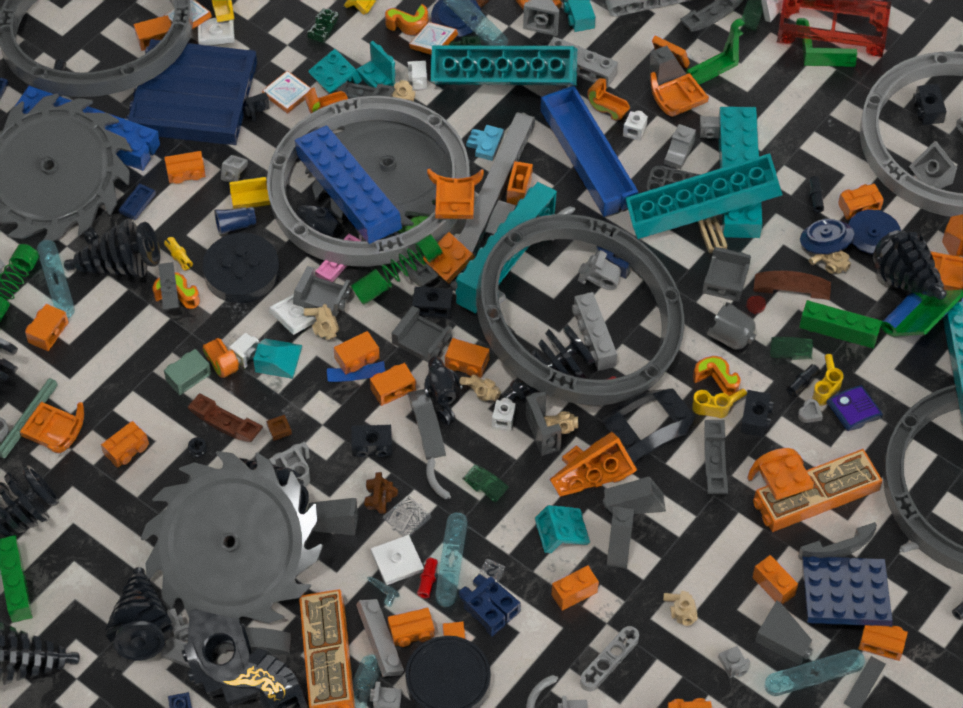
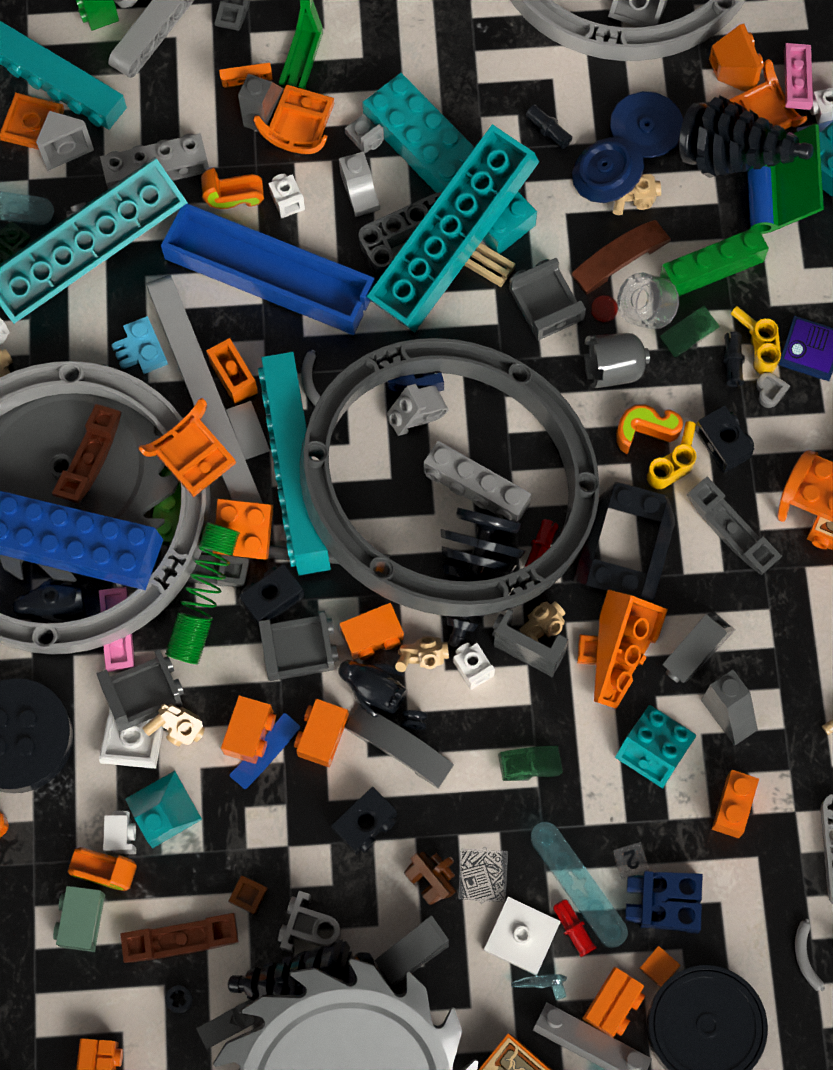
camera: 40 degrees left, 15 degrees up
(406, 167) = (90, 455): none -> copper slope
(433, 482) = (470, 809): light grey piece -> none
(781, 311) = (660, 304): none -> clear piece
(859, 200) = (603, 95): orange brick -> none

